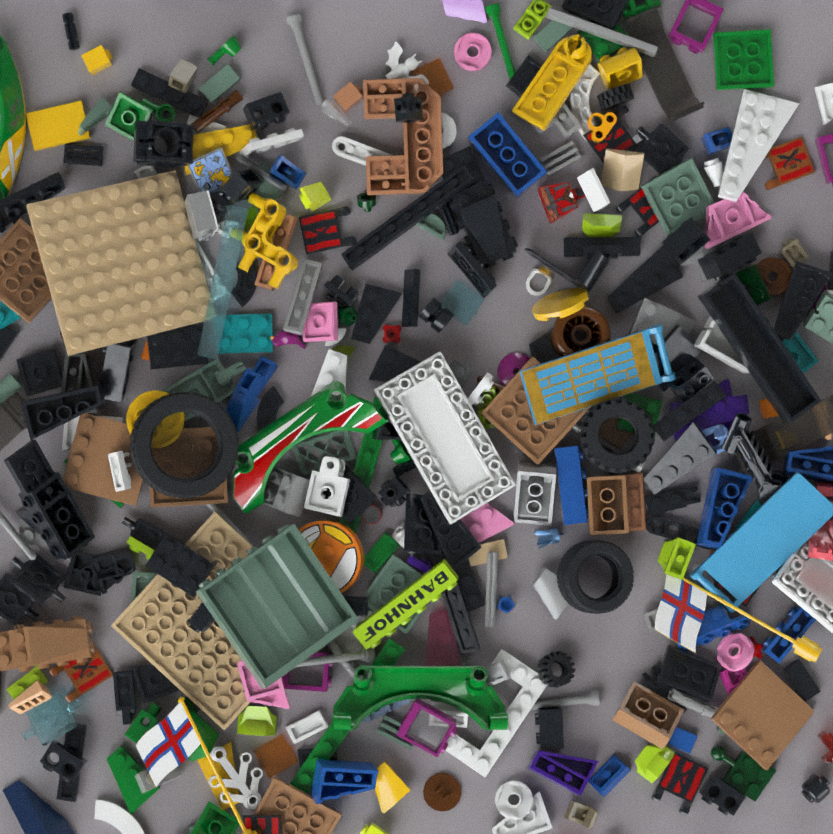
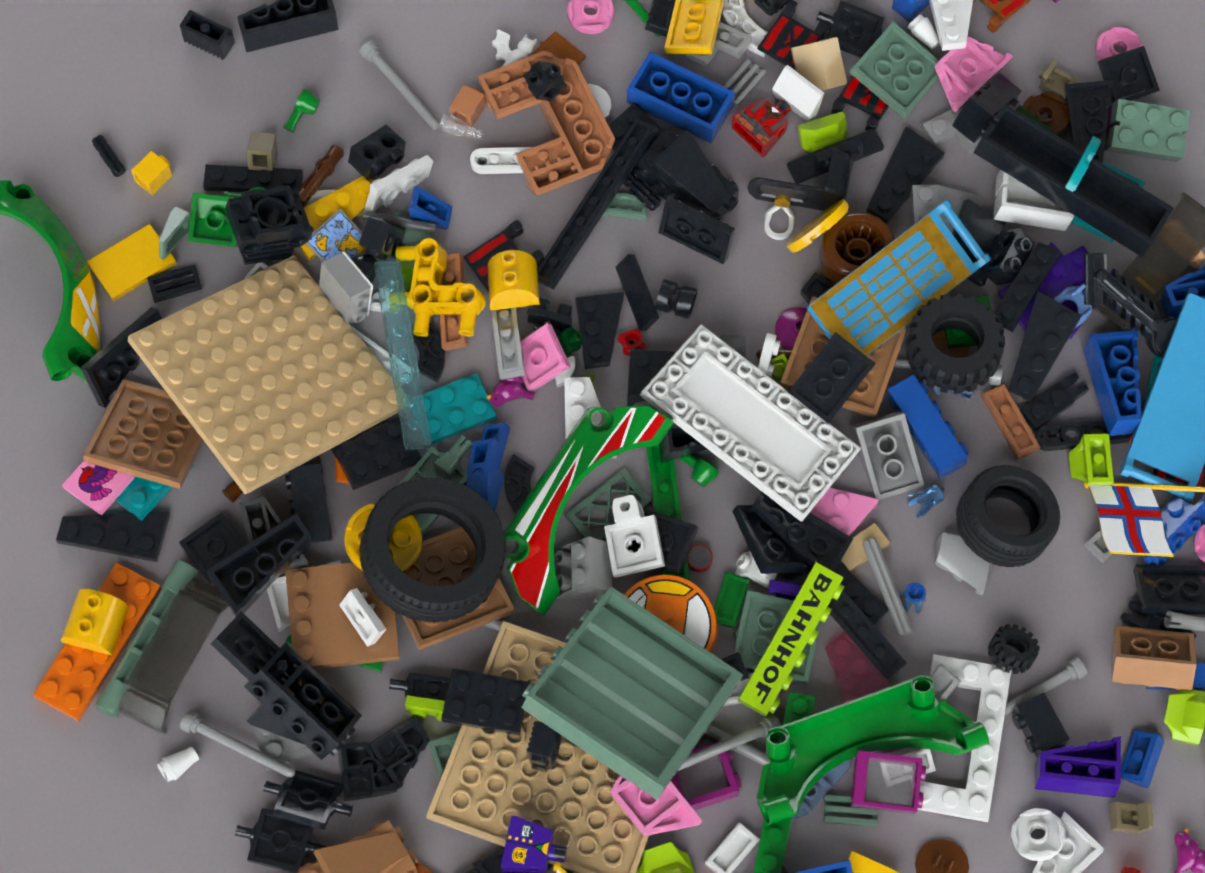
camera: 20 degrees left, 20 degrees down
(169, 678) = (530, 847): none -> dark purple torso
(219, 83) = (309, 148): sand green tile -> none
(314, 196) = (472, 221): neon yellow slope -> none
(324, 256) = (512, 280): none -> yellow brick
(366, 201) = (537, 207): dark green tile -> none
(400, 490) = (716, 517): black brick -> none
(405, 467) = (719, 484): black axle -> none
(462, 302) = (702, 275): clear light blue piece -> none
(516, 428) = (832, 377): none -> black plate
(604, 128) = (777, 28): light orange piece -> none
(607, 505) = (983, 429): medium nougat slope -> none
(686, 240) = (929, 108): black brick -> none
(762, 351) = (1083, 163): none -> teal tile
(767, 409) = (1117, 255): orange slope -> none

